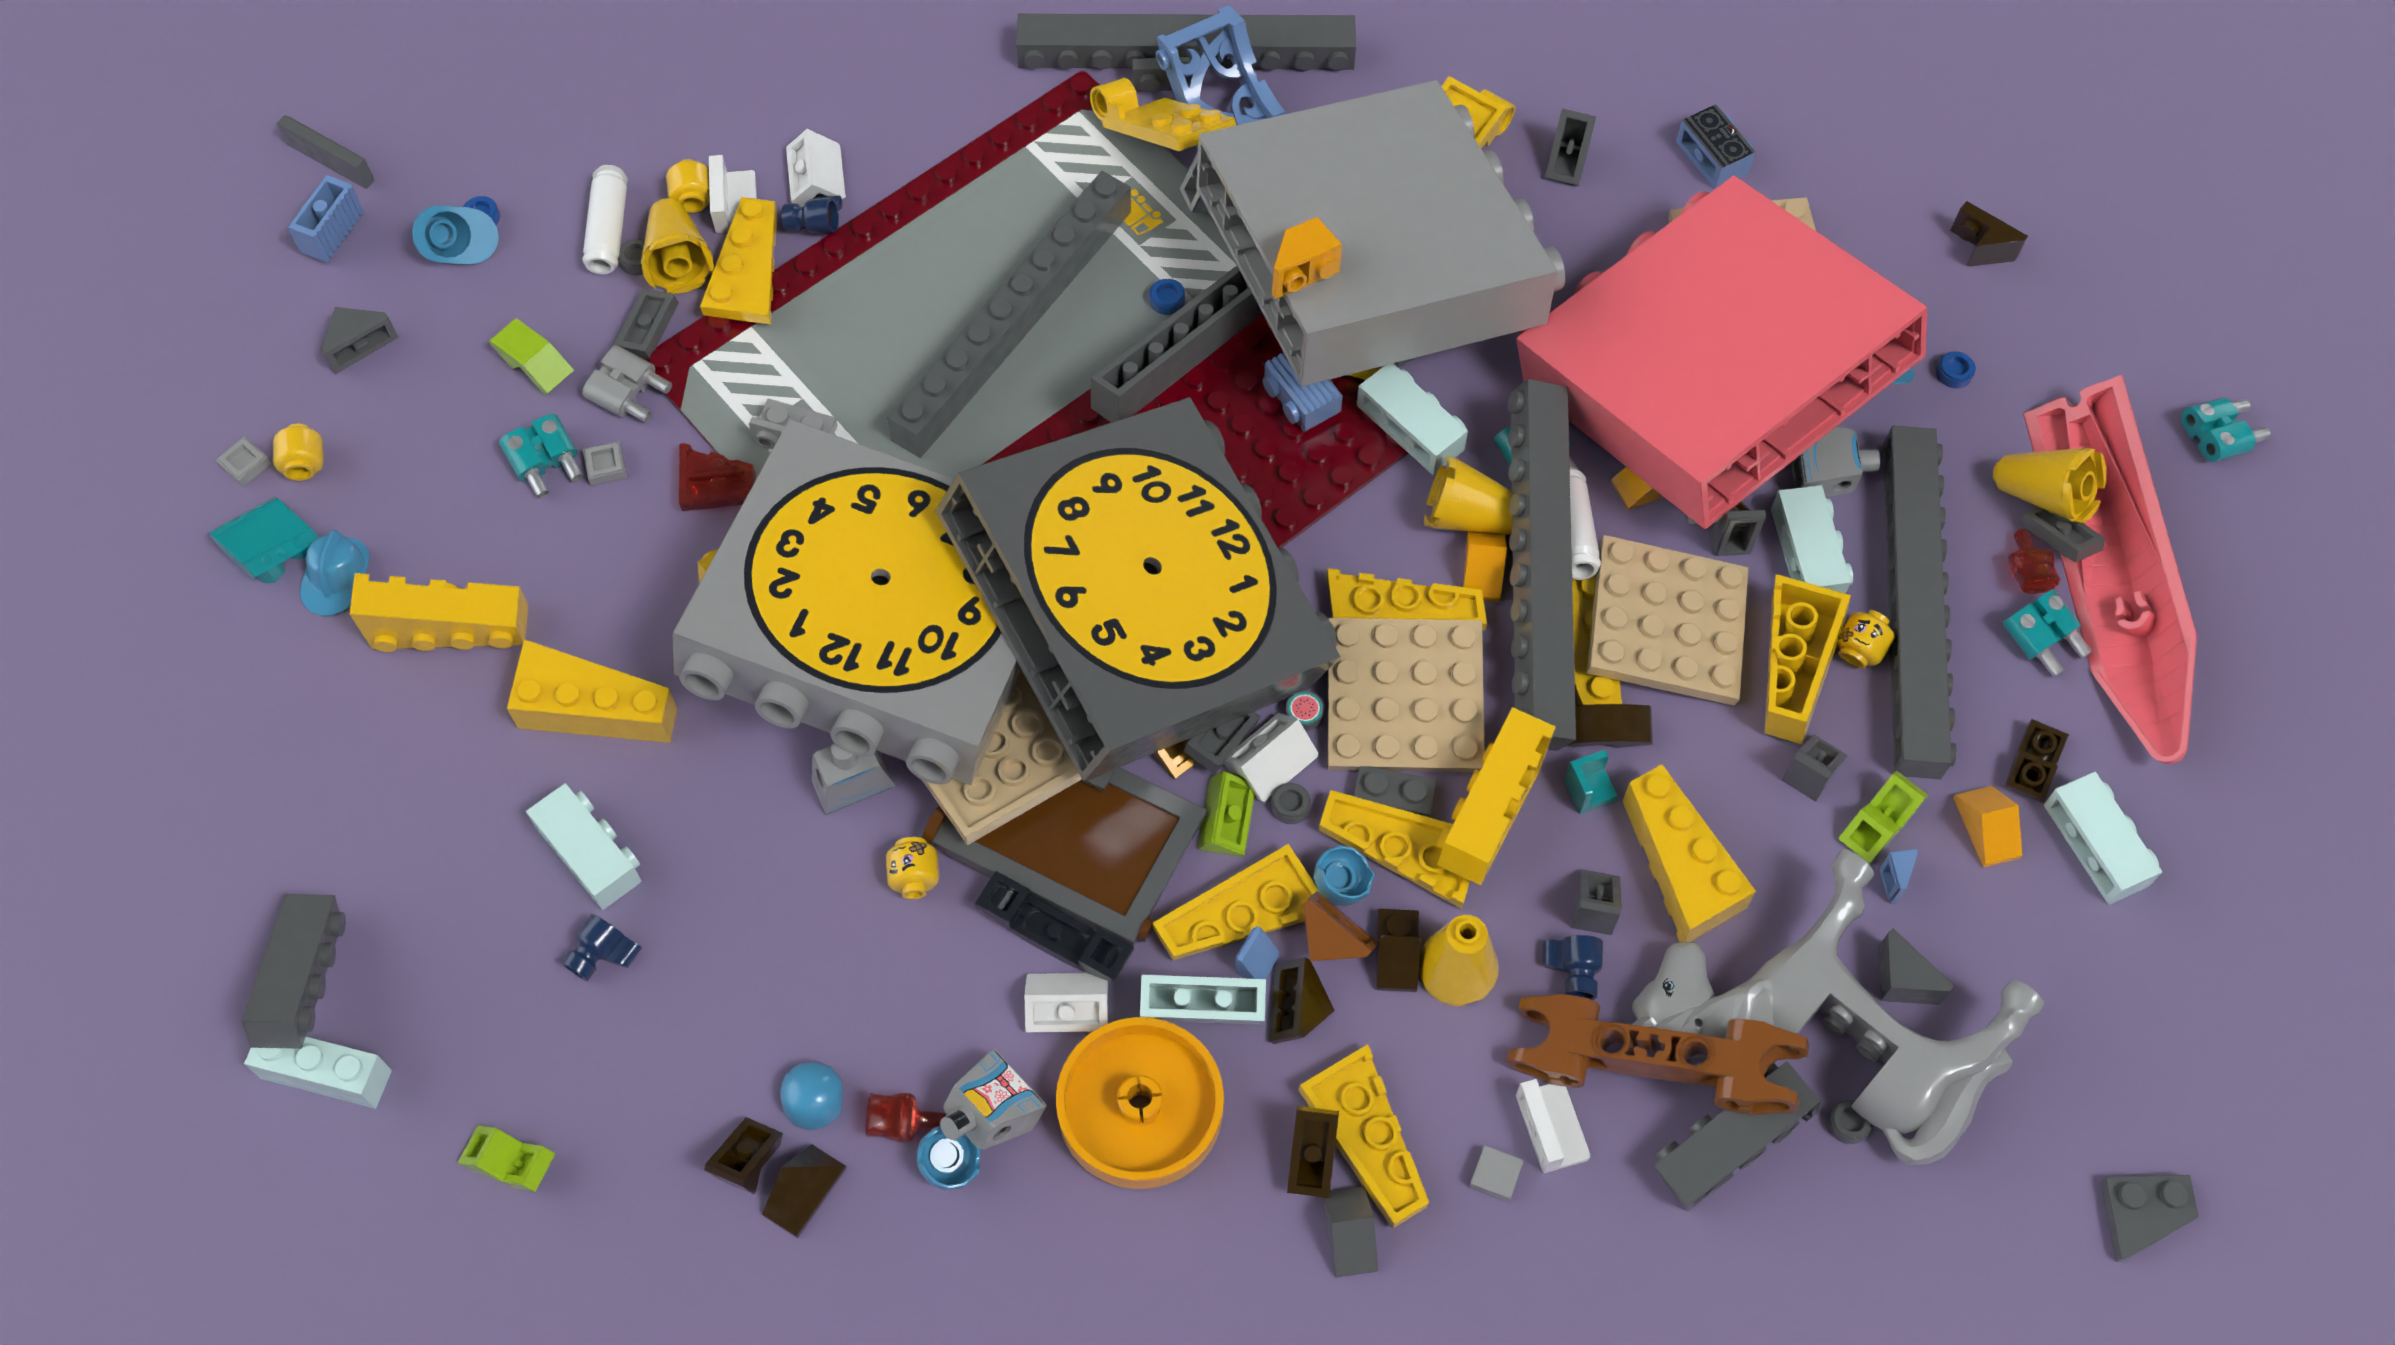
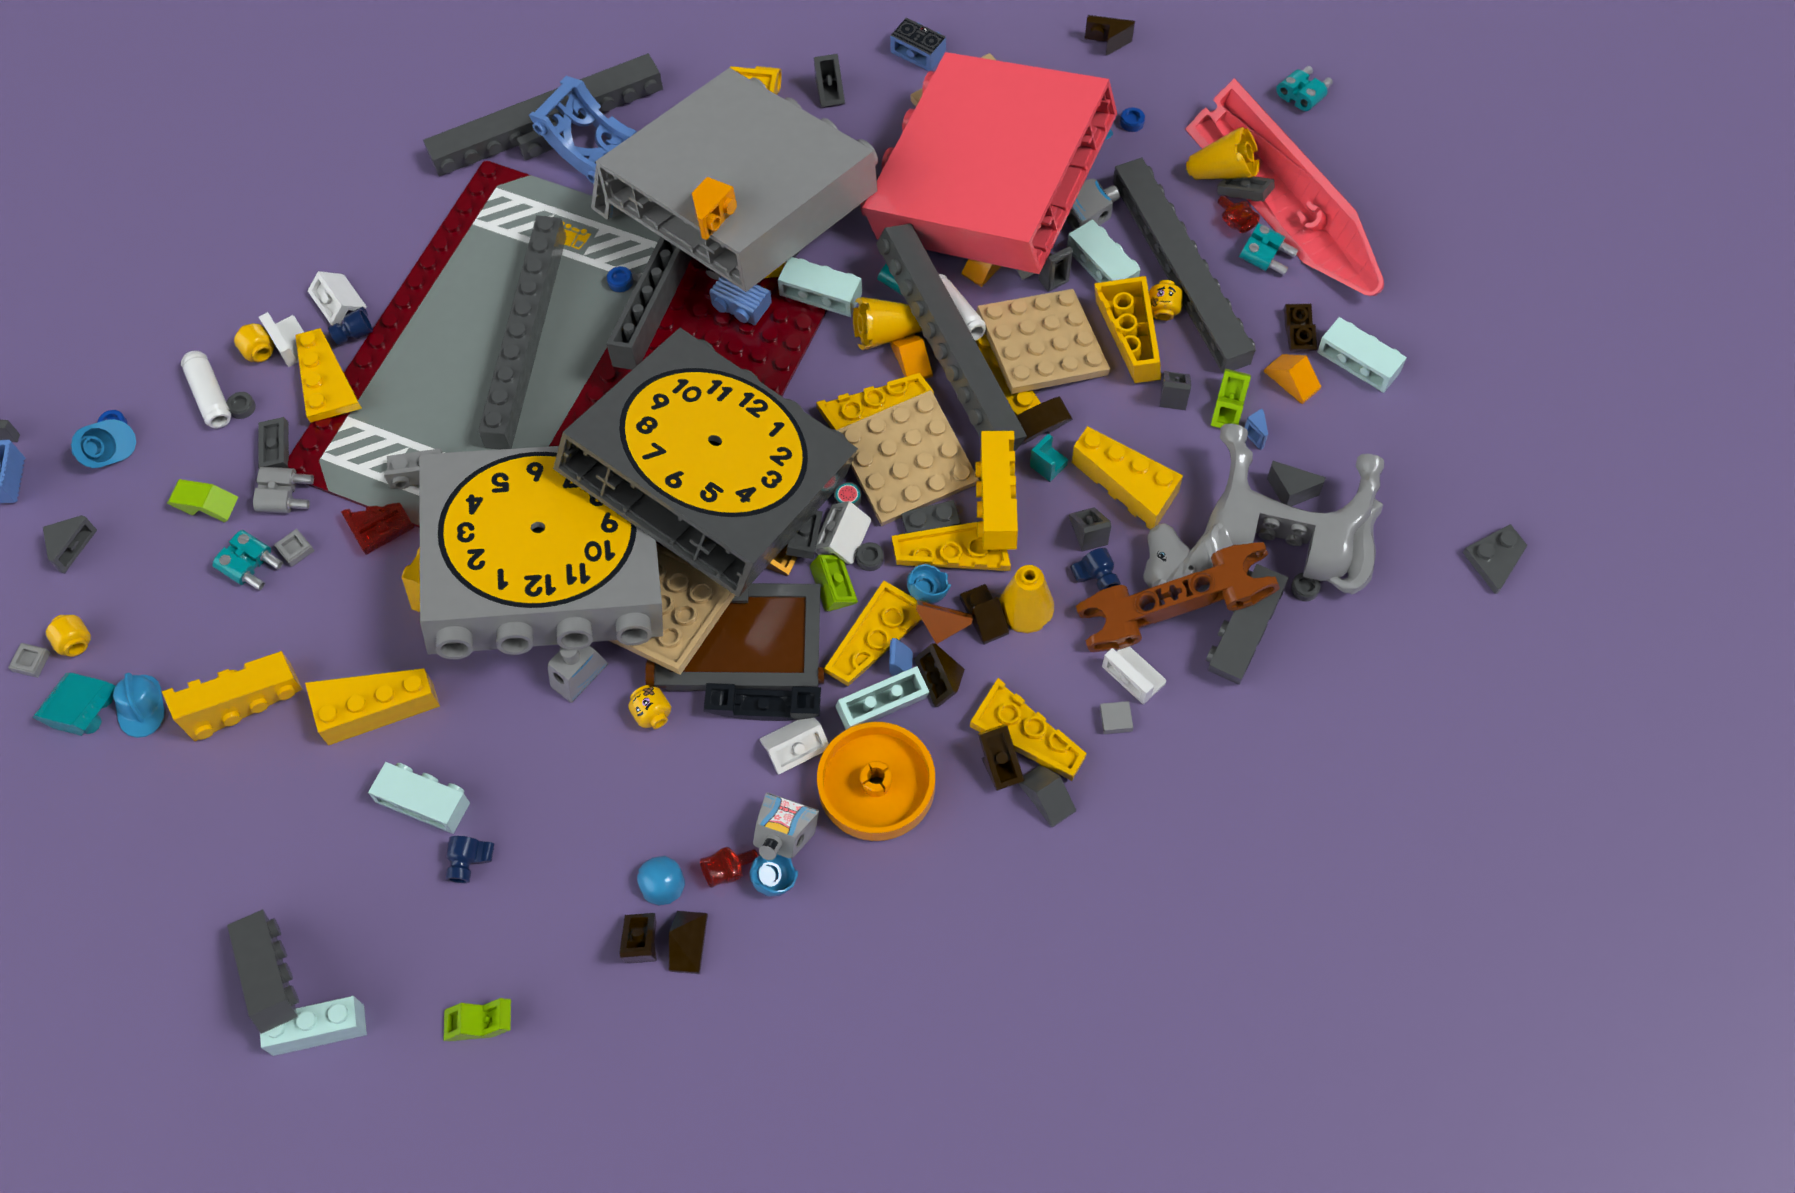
camera: 25 degrees left, 0 degrees up
(674, 249) = (268, 387): yellow cone -> none
(1158, 122) = (554, 170): yellow hinge -> none

